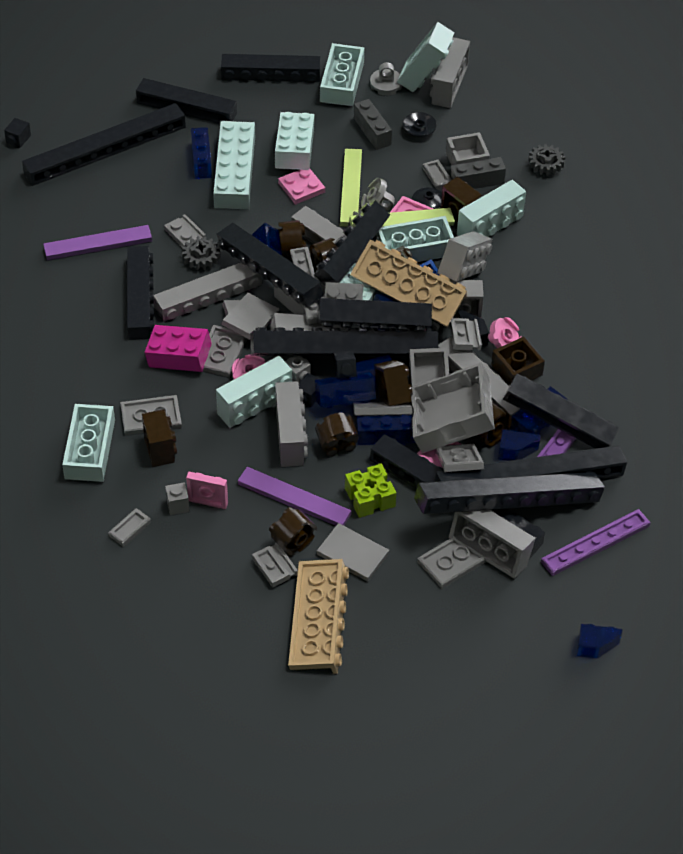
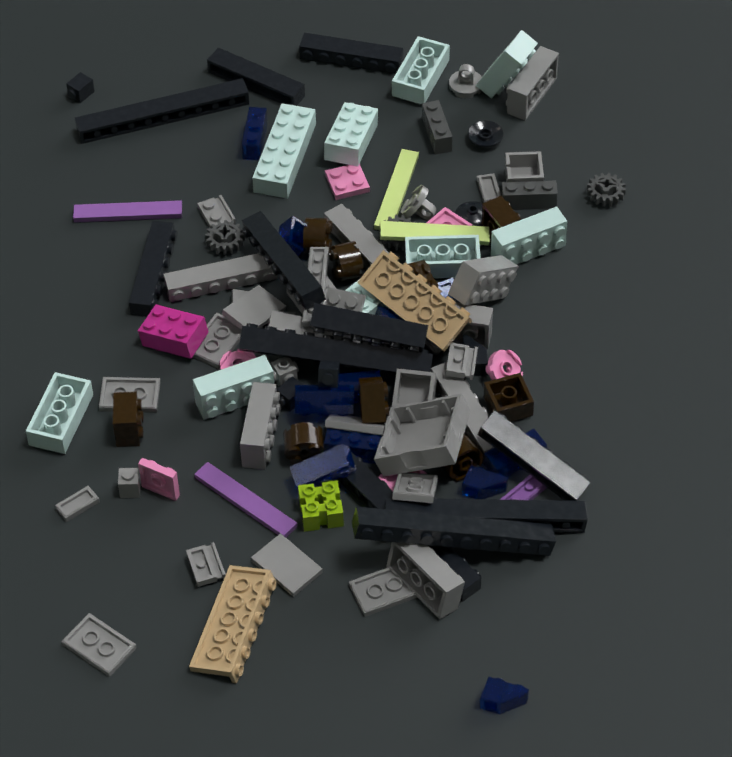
camera: 15 degrees right, 0 degrees up
(191, 660) = (99, 644): none -> light grey tile
(293, 531) = (230, 534): dark brown brick -> none
(352, 244) = (358, 262): black brick -> none
(365, 453) = (324, 467): none -> clear blue brick
(595, 542) = (534, 596): medium lavender tile -> none

